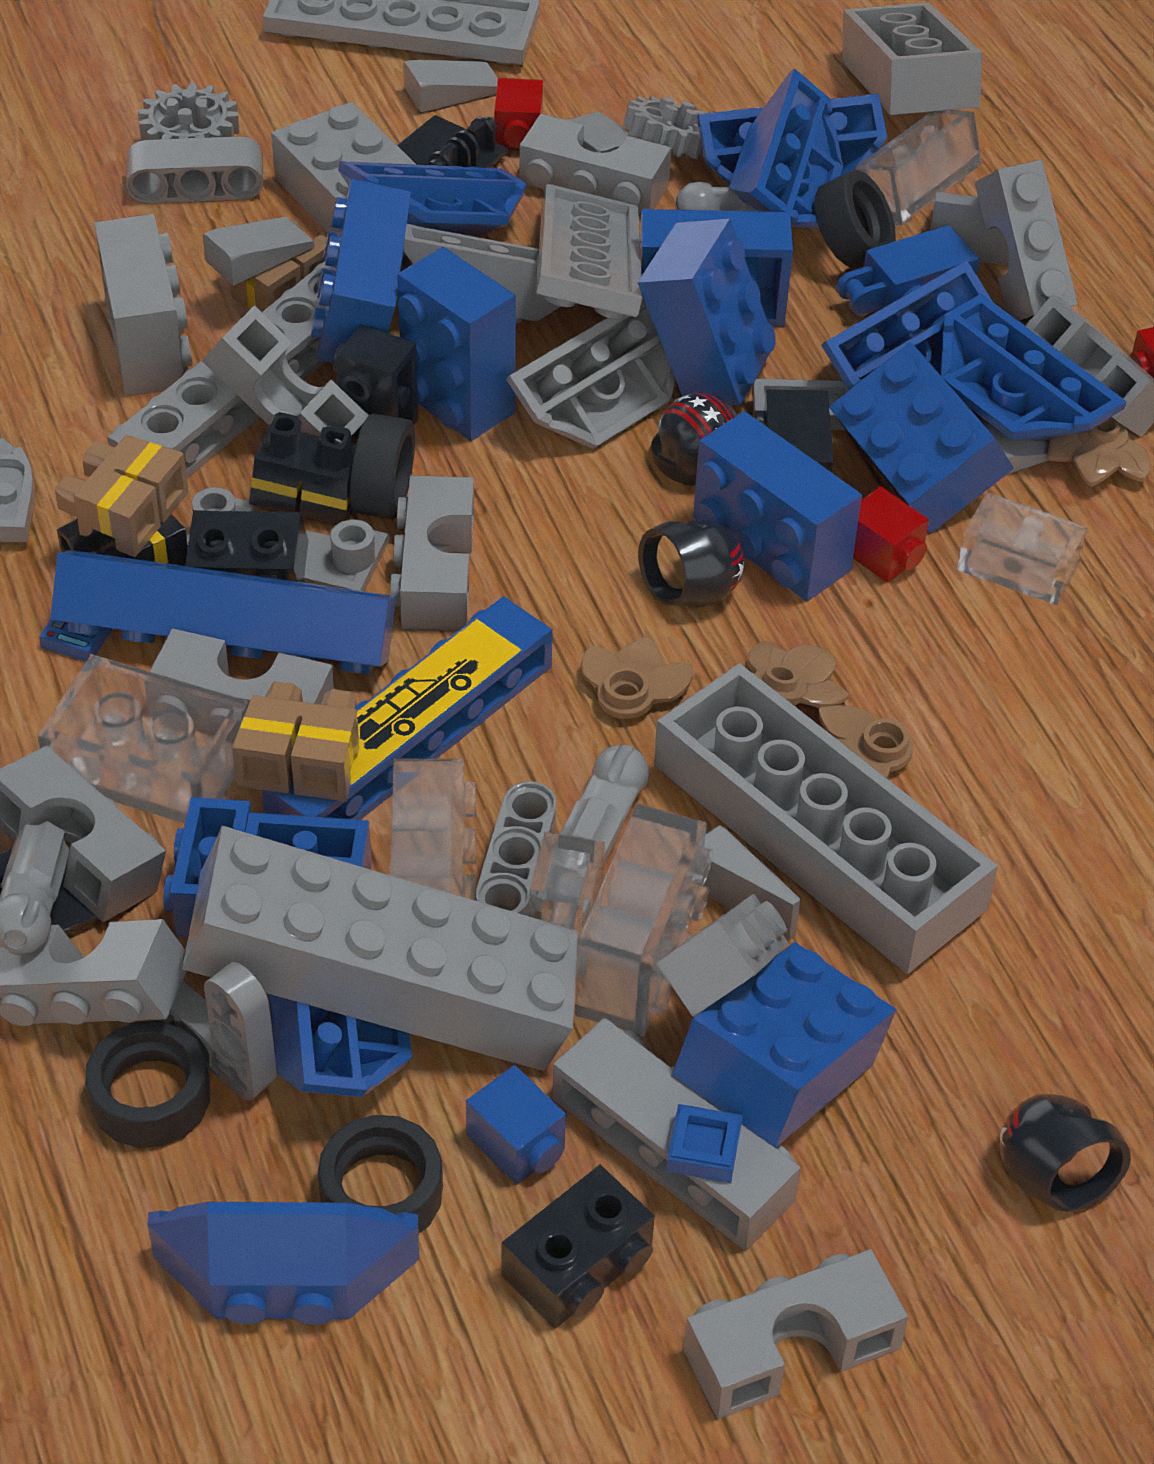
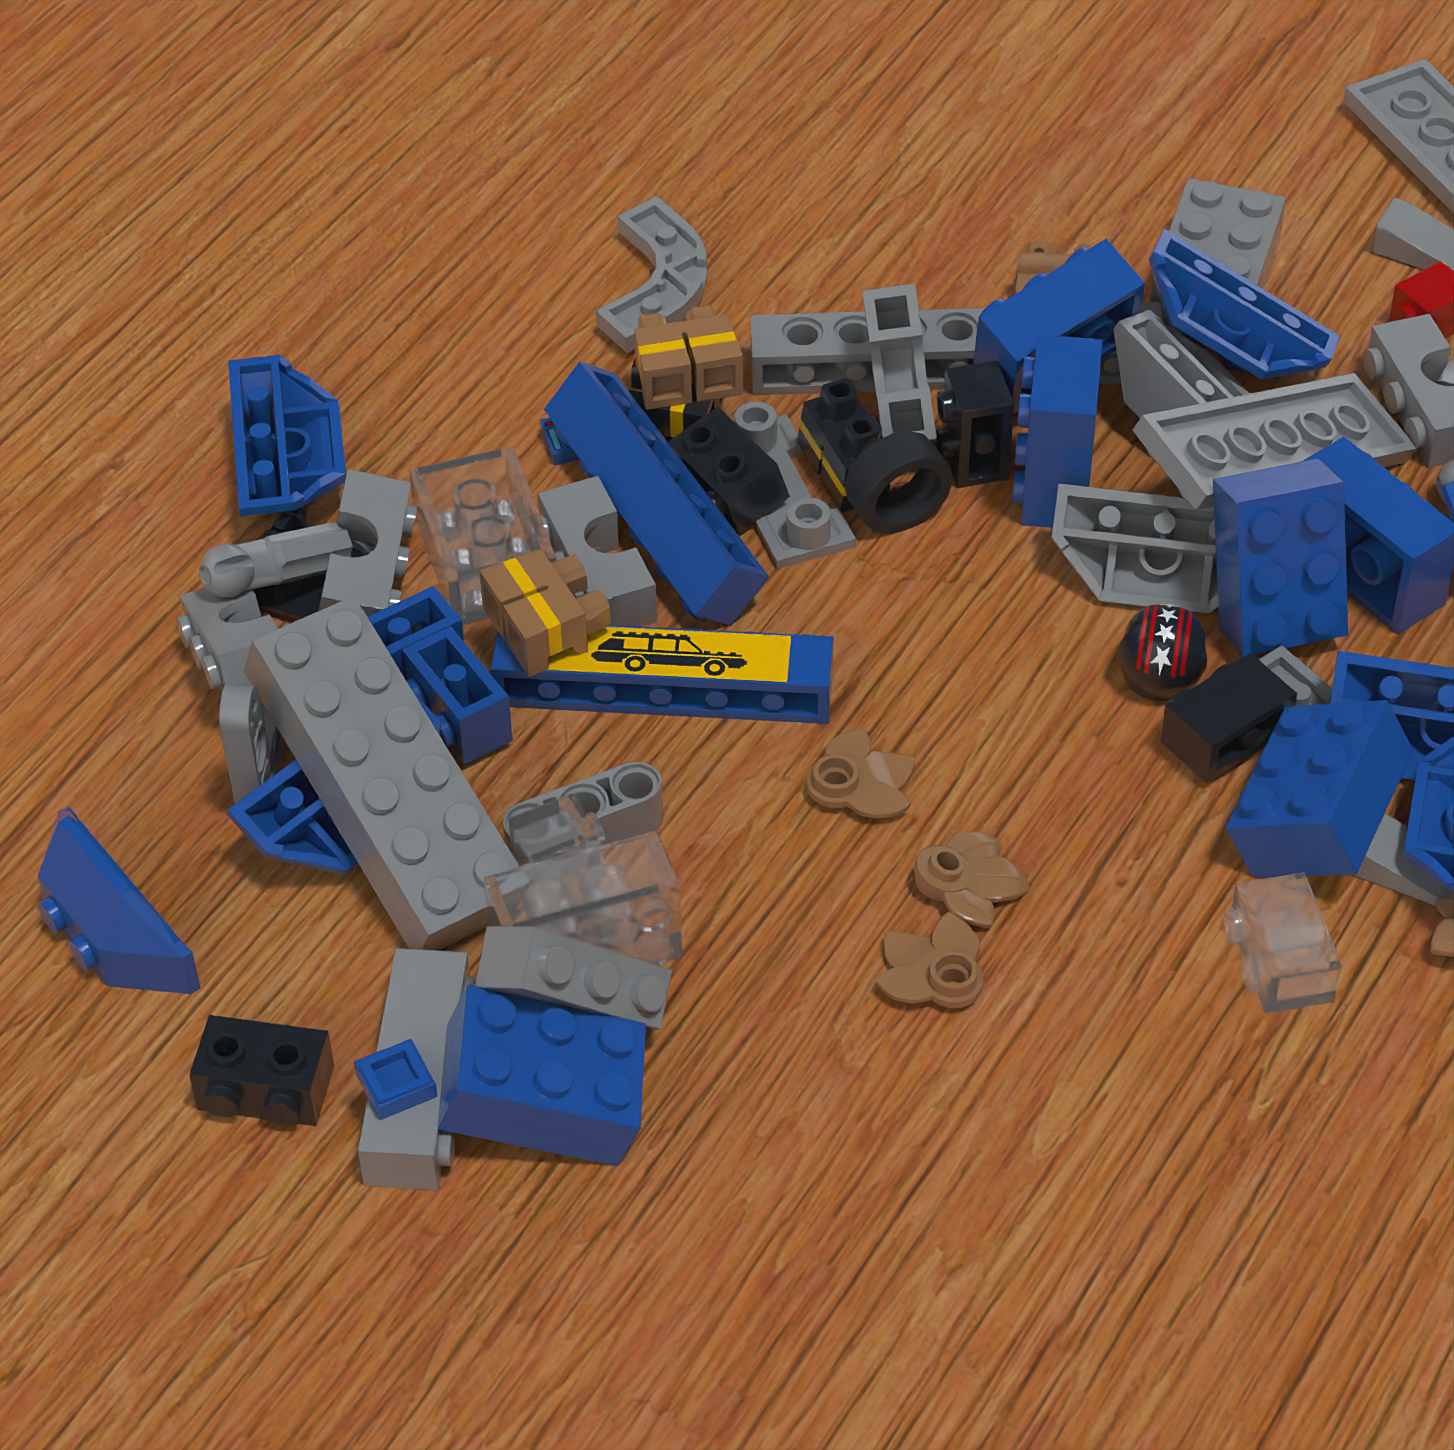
camera: 55 degrees right, 0 degrees up
(138, 1044) = (167, 718): black tyre -> none
(143, 303) = (911, 231): light grey brick -> none
(188, 114) = (1193, 132): light grey gear -> none
(194, 169) = (1117, 172): light grey beam -> none
(253, 247) = (1028, 249): light grey slope -> none
(391, 1137) = (220, 888): black tyre -> none
(429, 825) = (554, 749): clear brick -> none
(434, 569) = (886, 551): light grey arch -> none
(448, 144) = (1334, 293): black hinge -> none
(516, 1125) = (338, 968): blue brick -> none
(615, 782) = (736, 827): light grey piece -> none
(709, 558) = (1015, 734): black helmet -> none
(739, 874) = (708, 954): light grey slope -> none
(778, 504) = (1122, 744): blue brick -> none
(824, 817) = (811, 977): light grey brick -> none
(840, 1304) = (257, 1219): light grey arch -> none
(889, 535) = (1194, 839): red brick -> none
(1045, 1136) = (609, 1313): black helmet -> none

